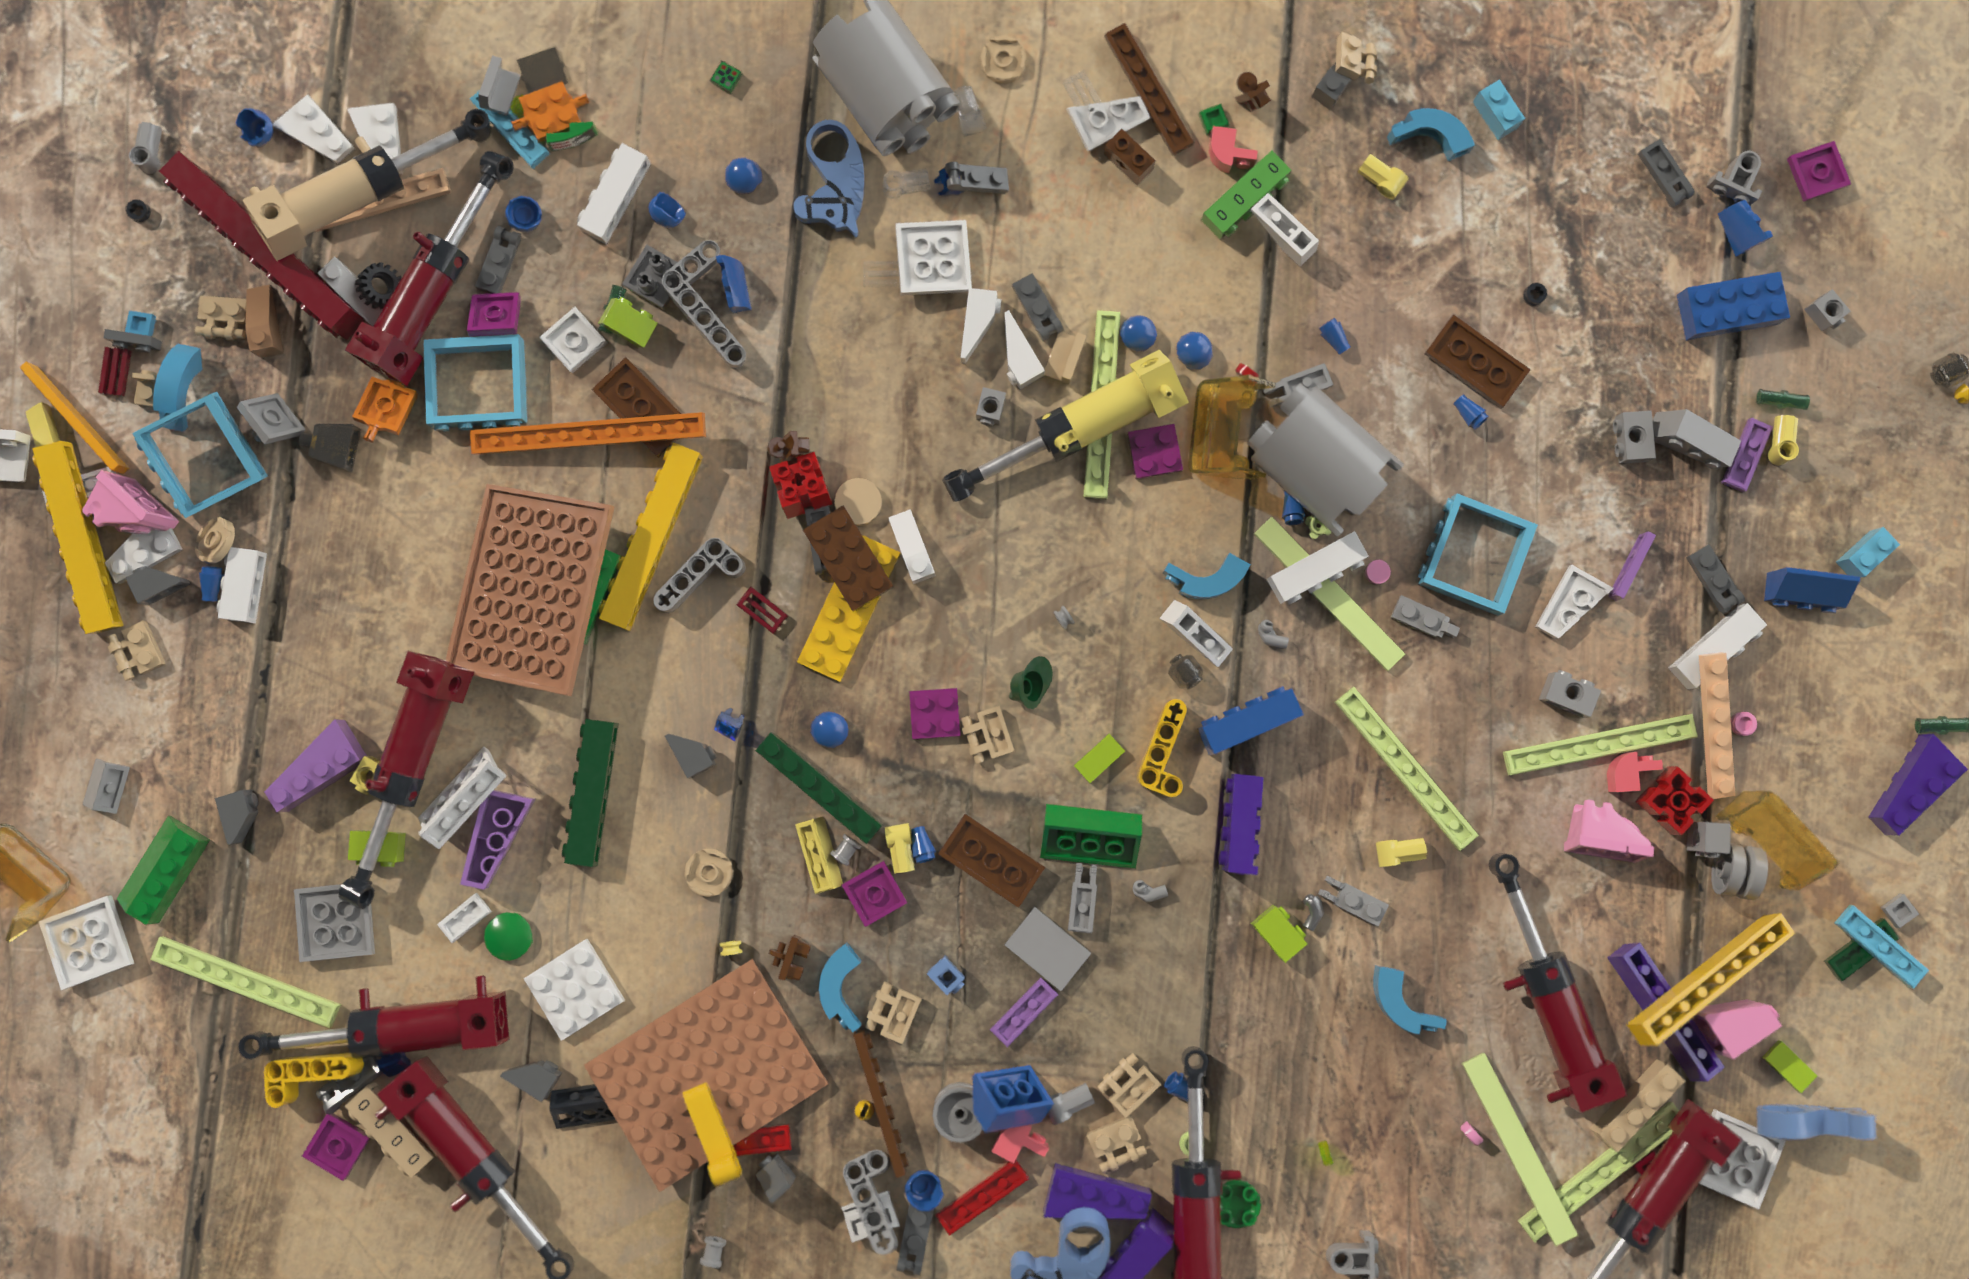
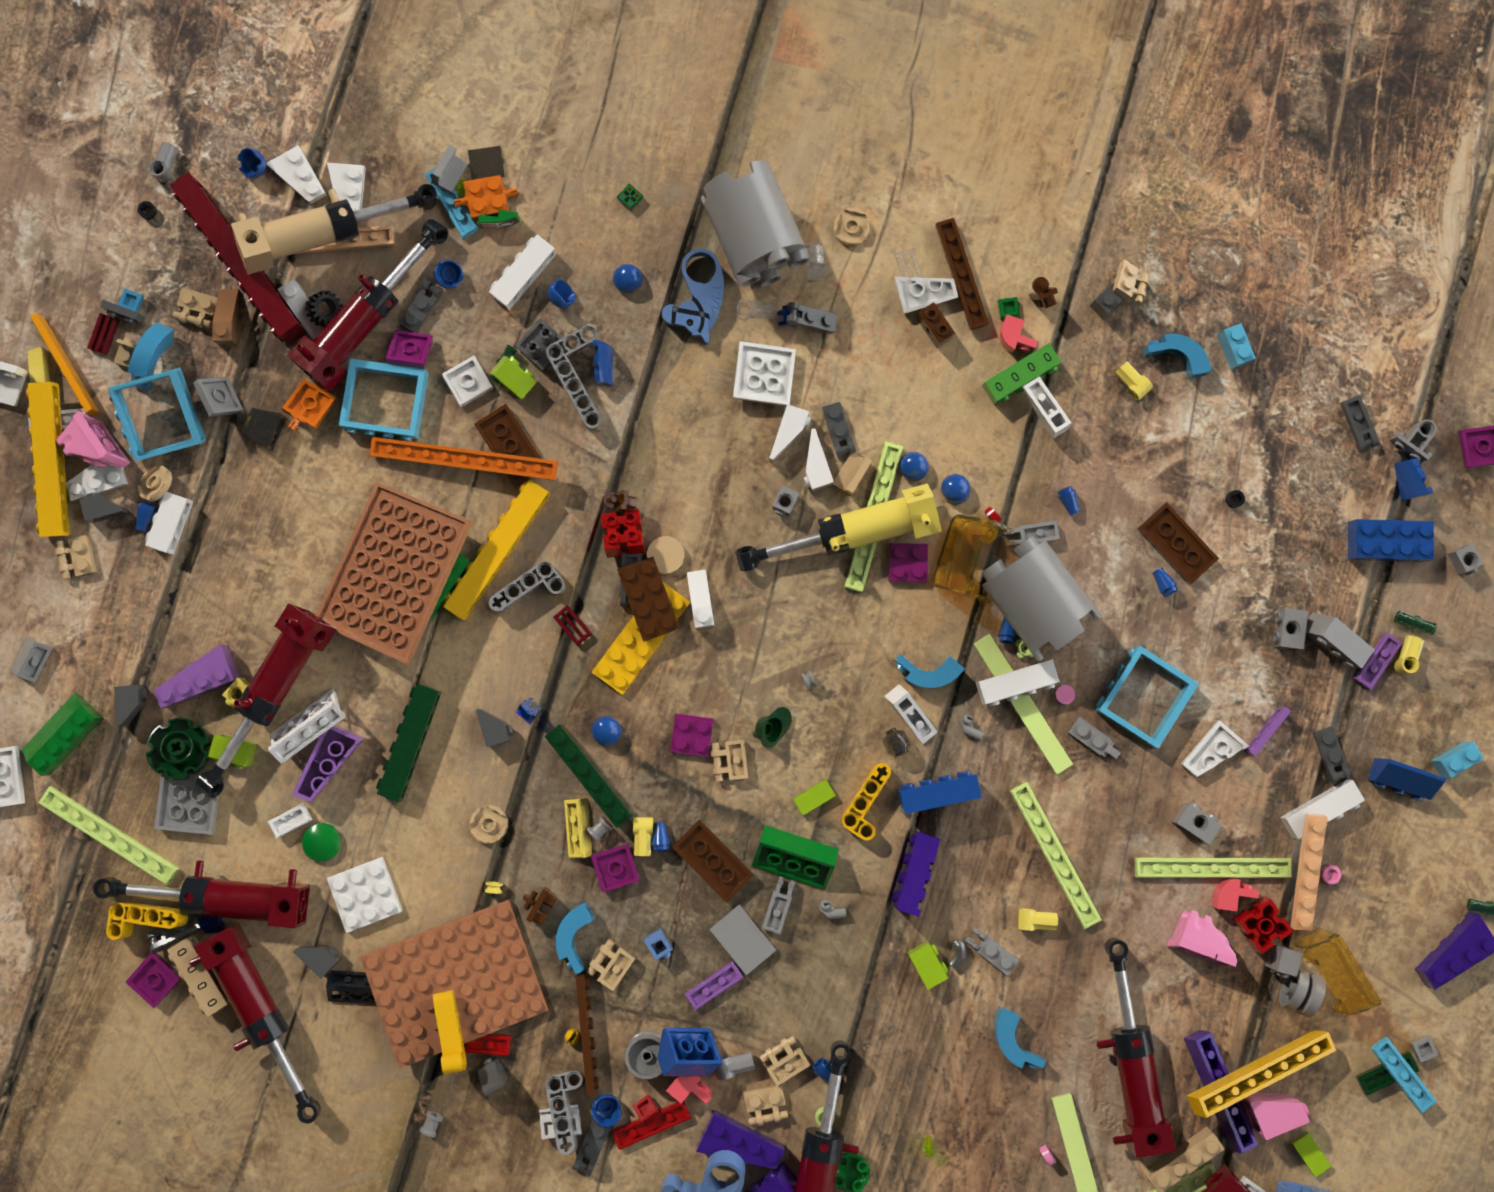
camera: 10 degrees right, 0 degrees up
(311, 876) = (175, 763): none -> dark green piece
(971, 1178) = (645, 1108): none -> red tile

